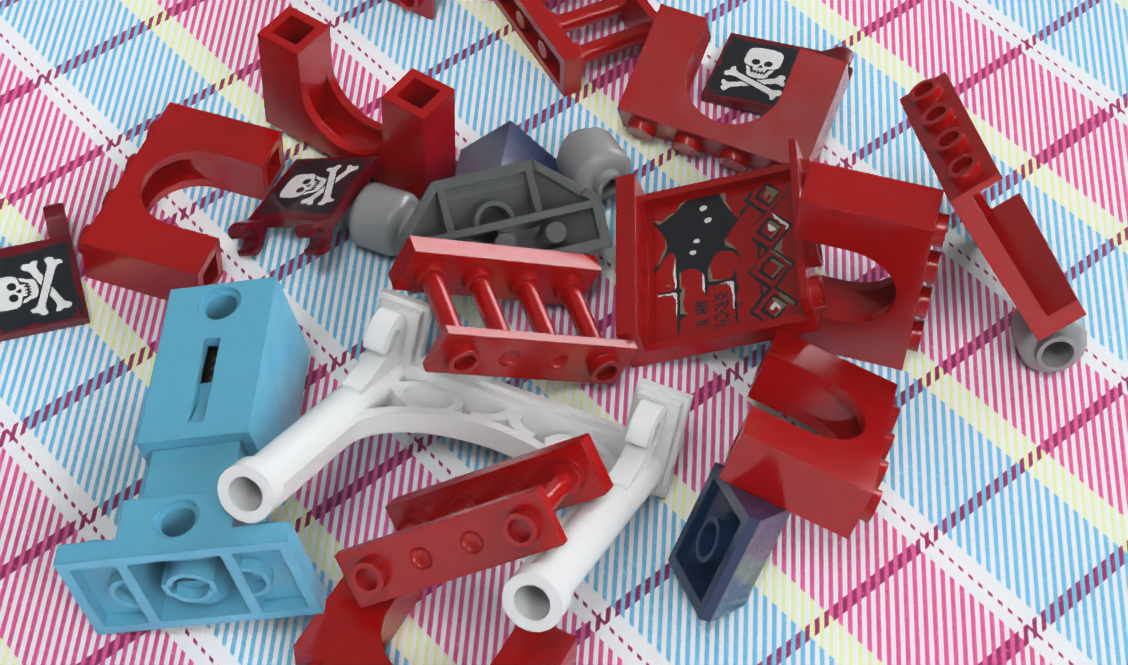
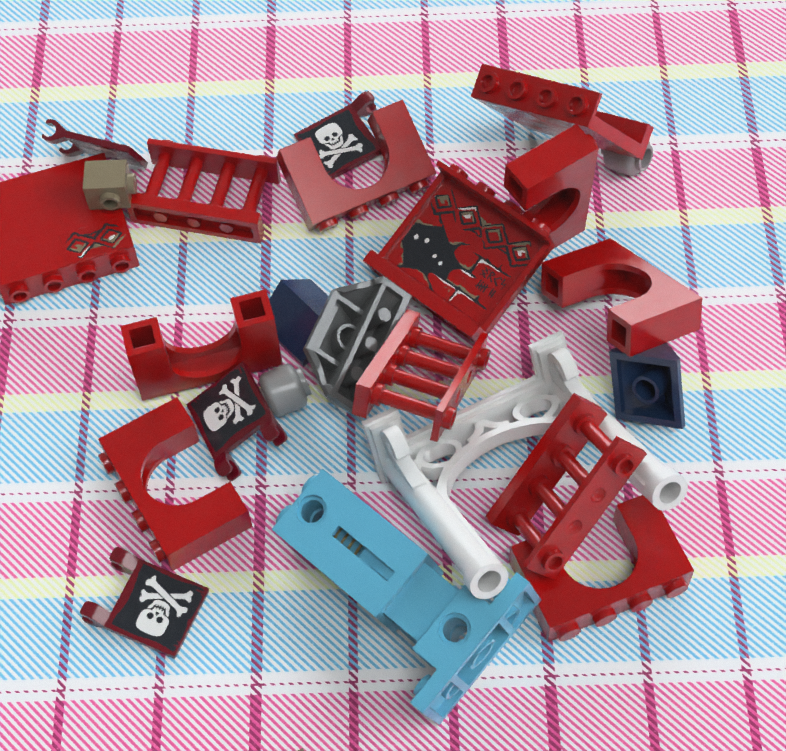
camera: 45 degrees left, 10 degrees up
(593, 160) = (337, 264): light grey head -> none

